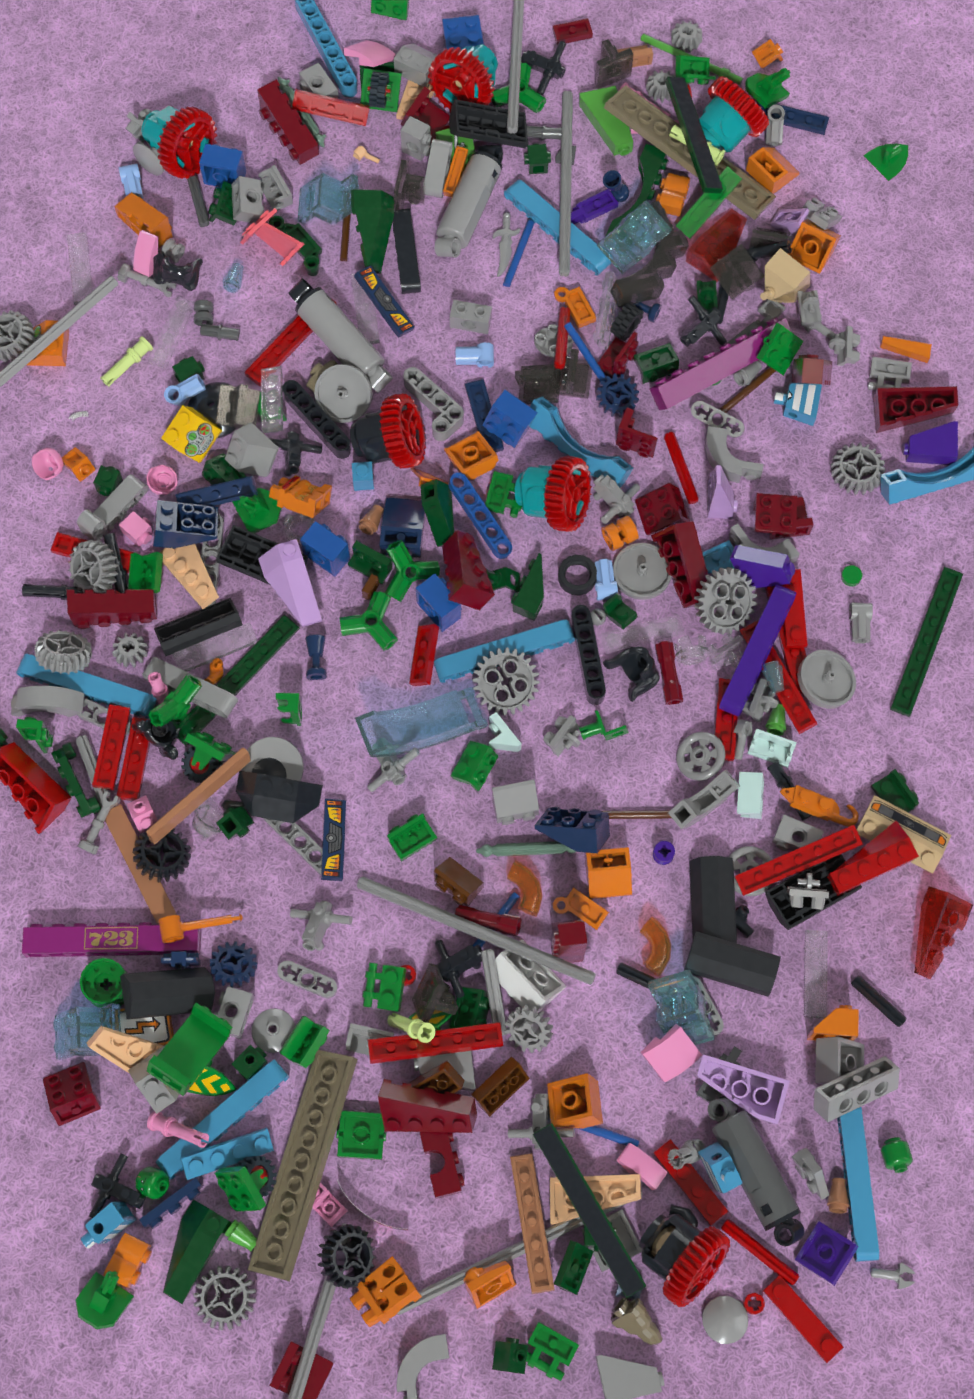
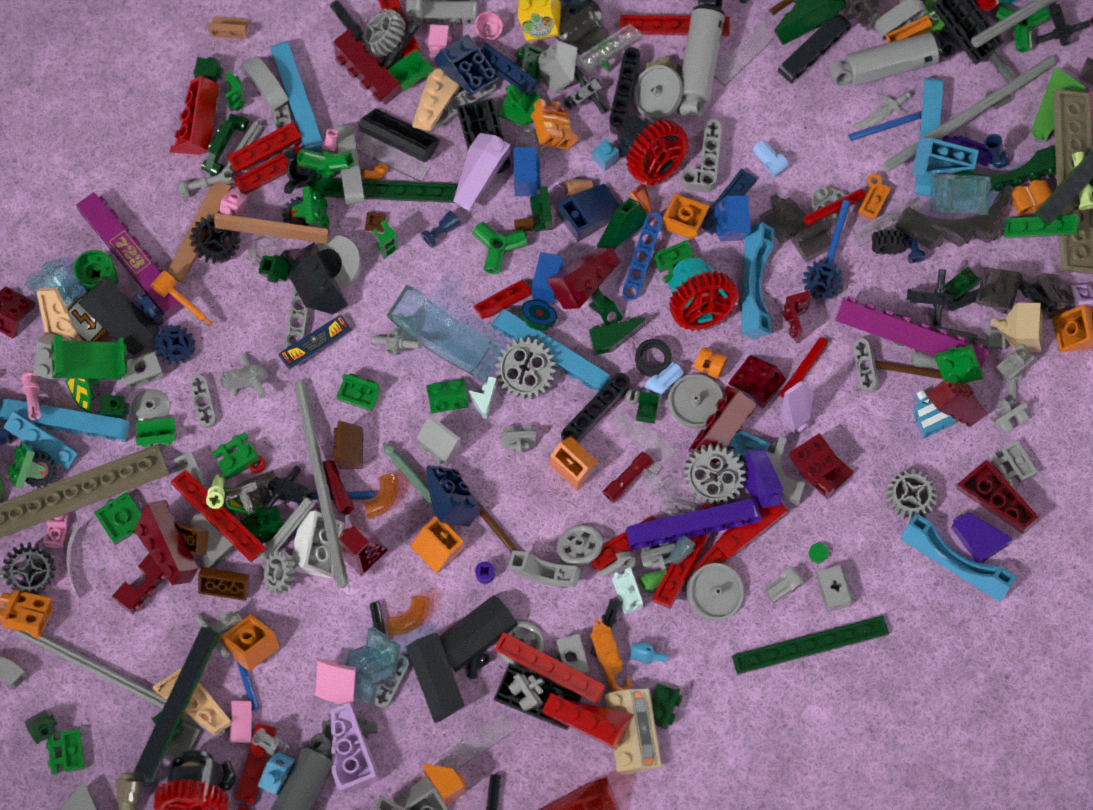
camera: 55 degrees right, 0 degrees up
(63, 652) = (306, 63): light grey gear -> none
(132, 656) = (339, 107): light grey gear -> none
(260, 707) = (374, 220): none -> reddish brown tile
(384, 301) = (758, 64): tile -> none
(403, 560) = (545, 242): green piece -> none
(464, 636) = (538, 315): none -> dark green tile
(470, 316) = (798, 131): light grey brick -> none
(488, 1283) = (79, 675): orange slope -> none
(532, 1224) = (143, 675): nougat tile -> none
(537, 158) = (974, 80): dark green brick -> none
(573, 1267) = (132, 724): dark green bracket -> none
(583, 908) = (398, 546): orange hinge -> none
(591, 226) = (942, 156): none -> dark azure wedge
(598, 727) = (544, 459): green bracket -> none
(618, 355) = (856, 257): dark red bracket -> none
(618, 501) = (735, 343): light grey piece -> none
(625, 706) = (572, 462): none -> orange slope
(638, 667) = (613, 453): black hair -> none
(657, 363) = (874, 288): dark green bracket -> none
(716, 243) = (1020, 257): clear red wedge -> none
(718, 454) = (838, 382): light grey arch -> none
(750, 794) = (578, 602): light aqua hinge -> none
(839, 774) = (645, 653): none -> dark azure piece
(883, 585) = (826, 579): none -> light grey brick
(908, 348) = (1052, 466): orange piece -> none

